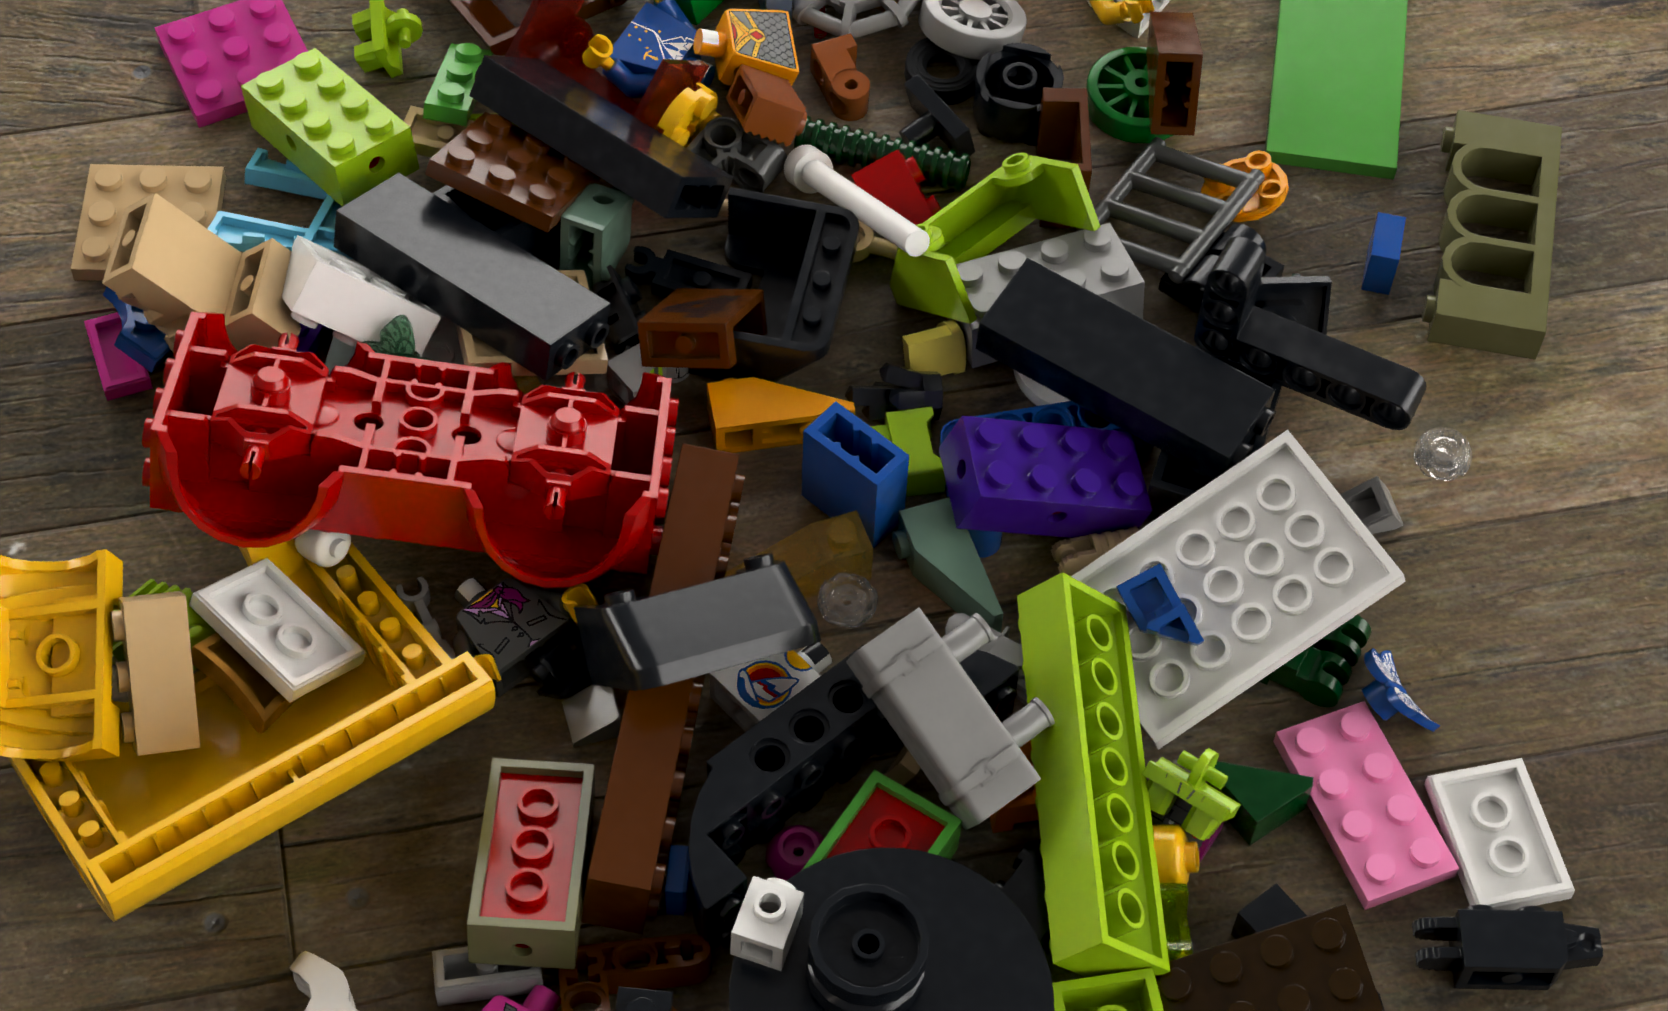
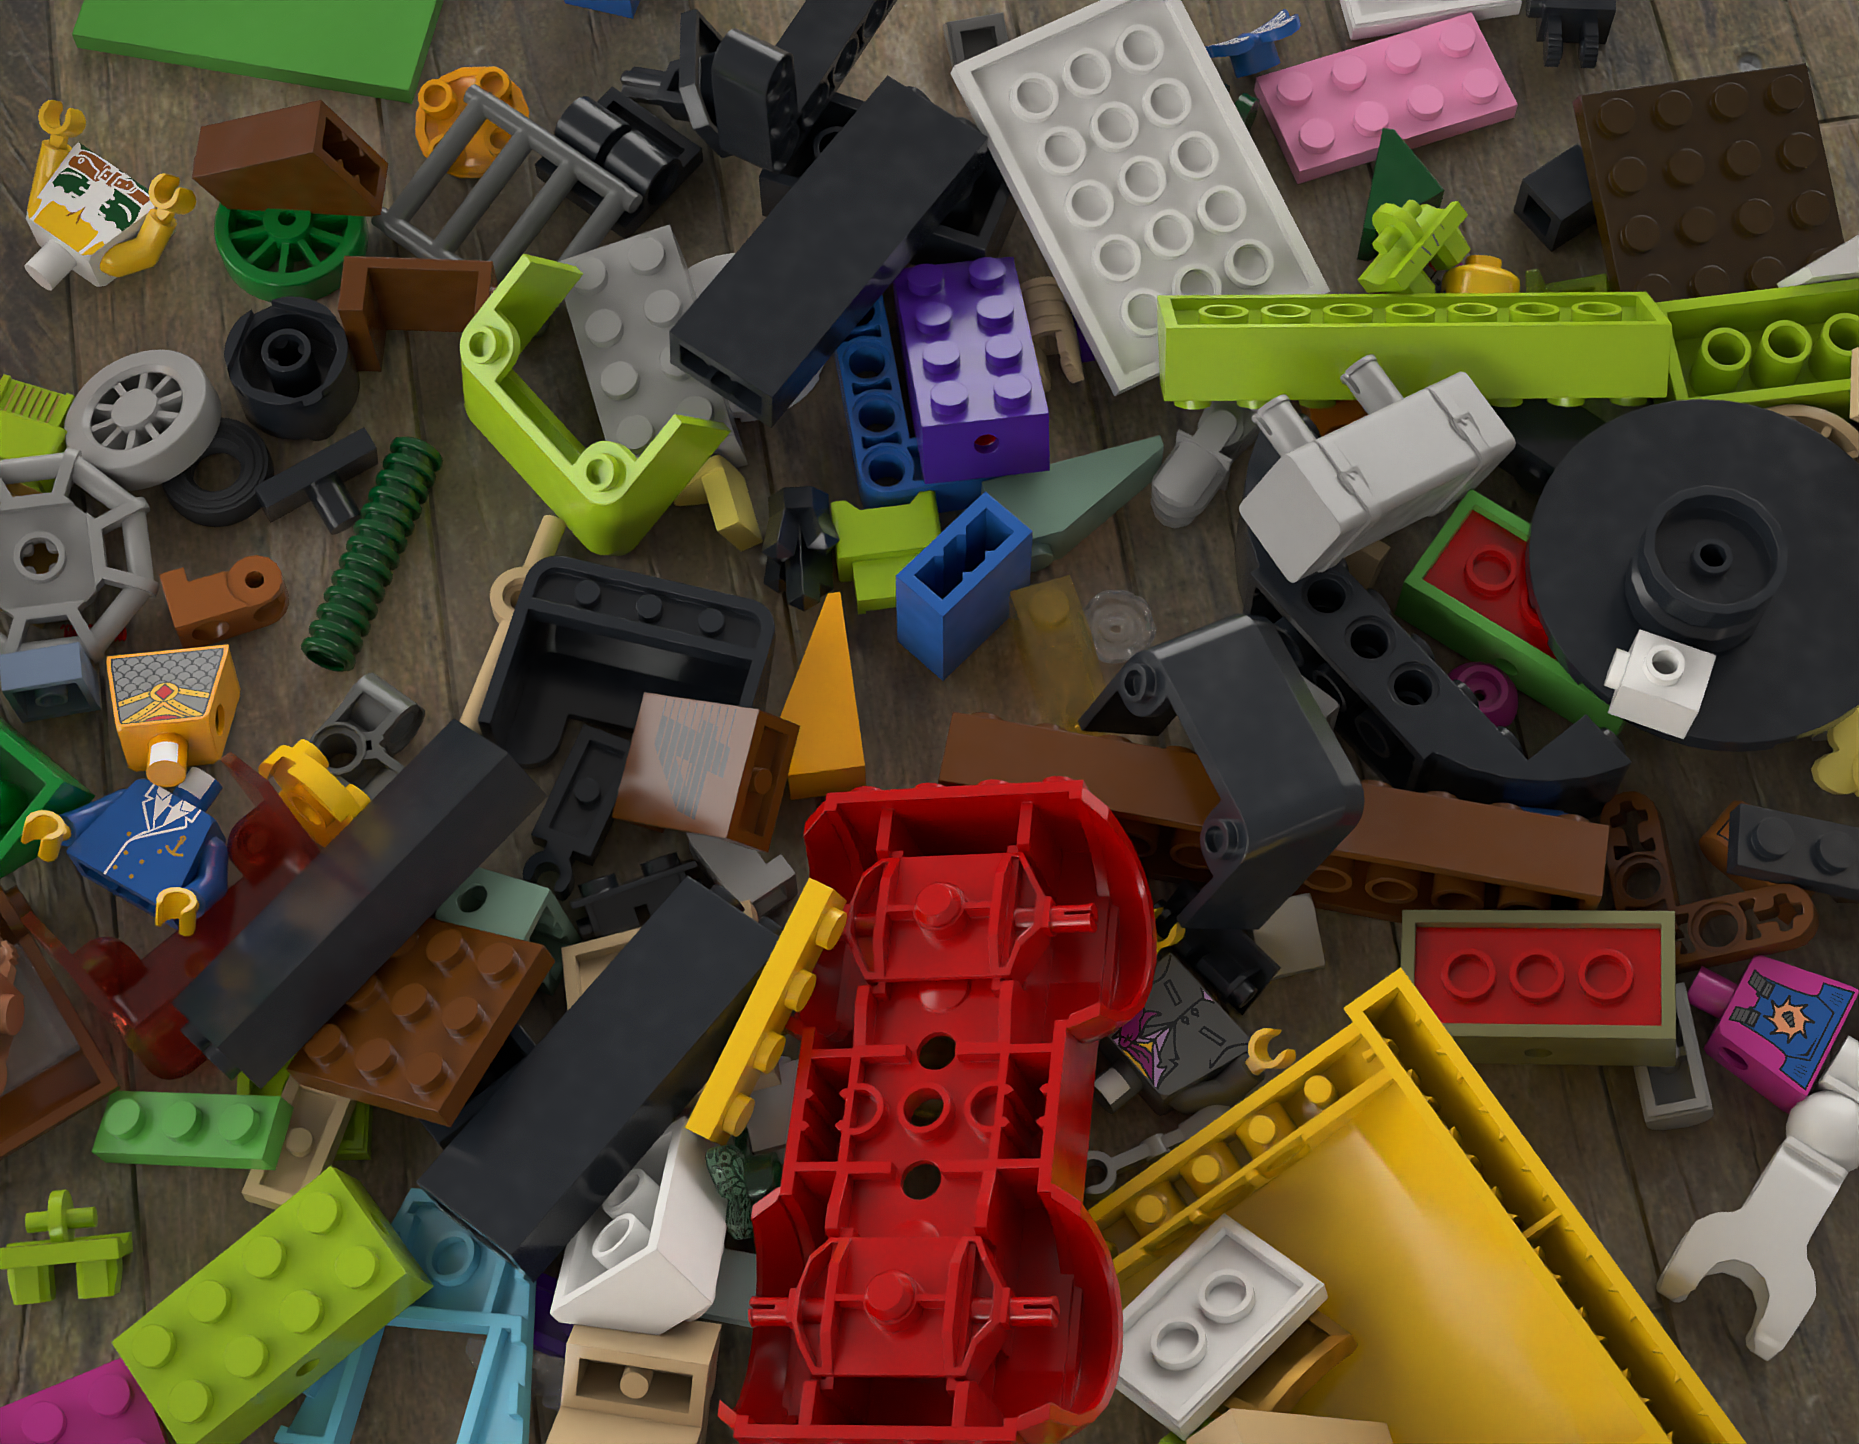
camera: 85 degrees left, 10 degrees up
(501, 340) = (757, 1037): none -> yellow plate
(766, 105) = (293, 688): dark orange brick -> none
(813, 172) = (402, 644): white piece -> none
(896, 185) = (462, 532): red slope -> none
(1158, 608) = (1169, 255): blue slope -> none

